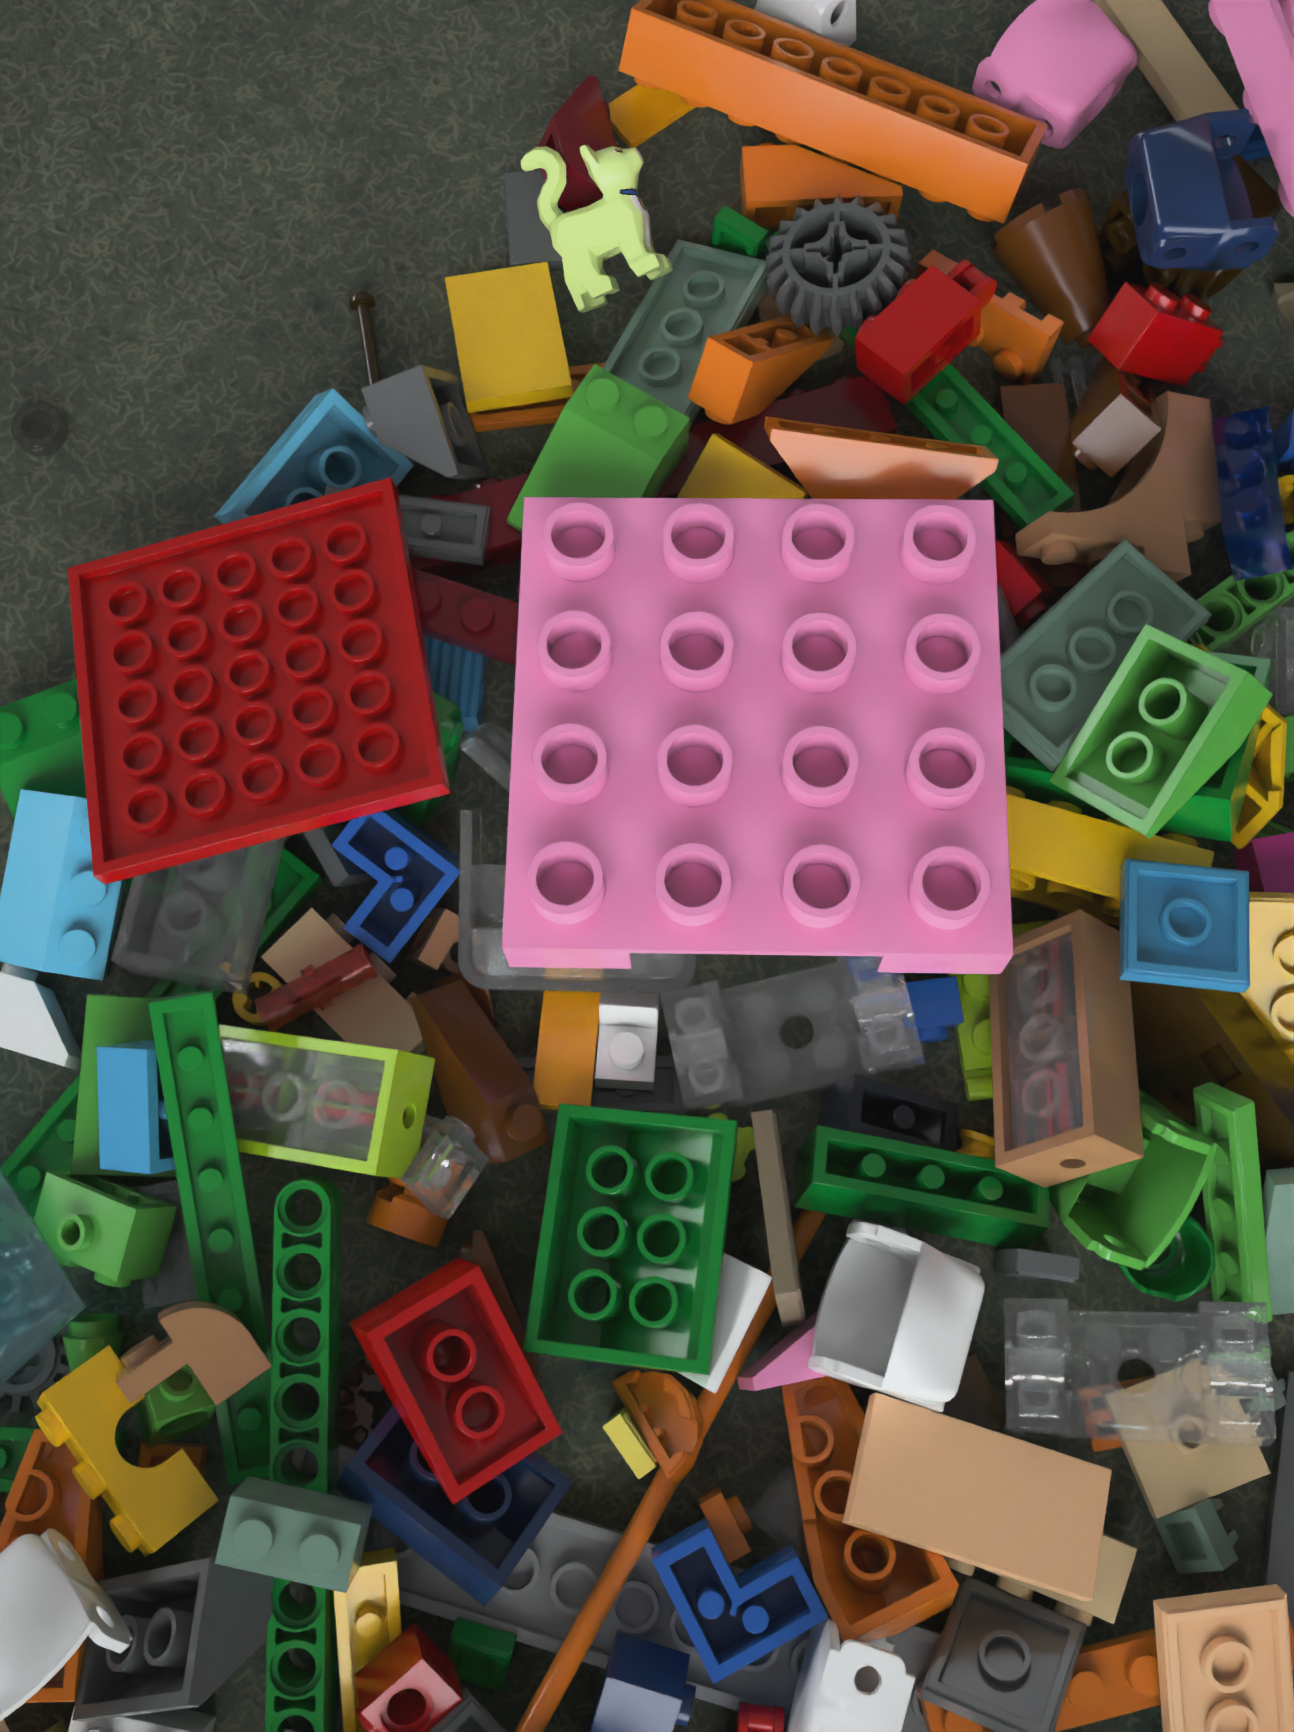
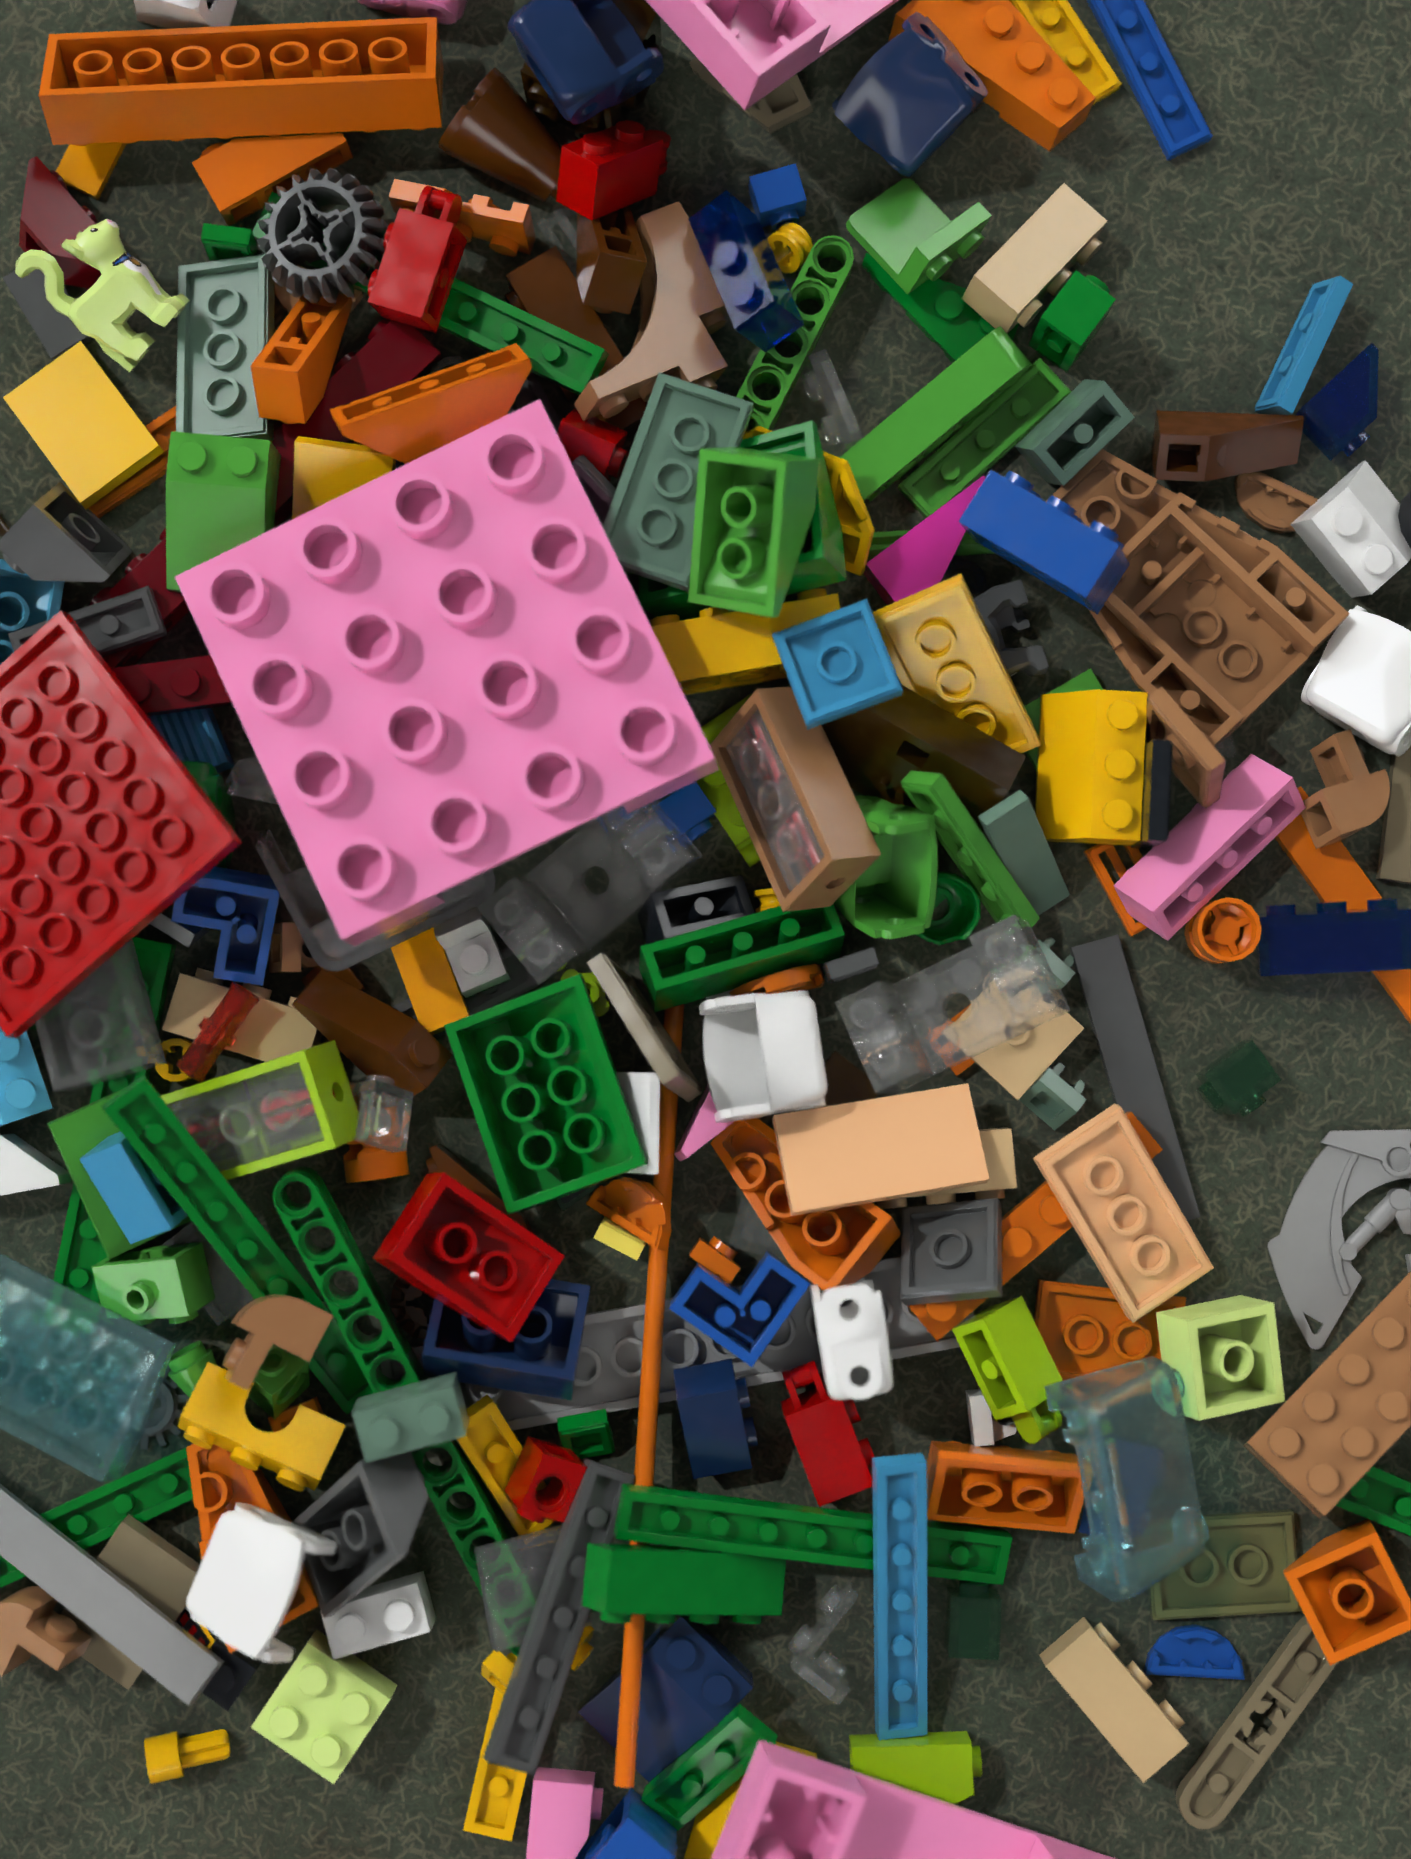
camera: 25 degrees left, 10 degrees up
(957, 1244) = (793, 979): none -> orange tile

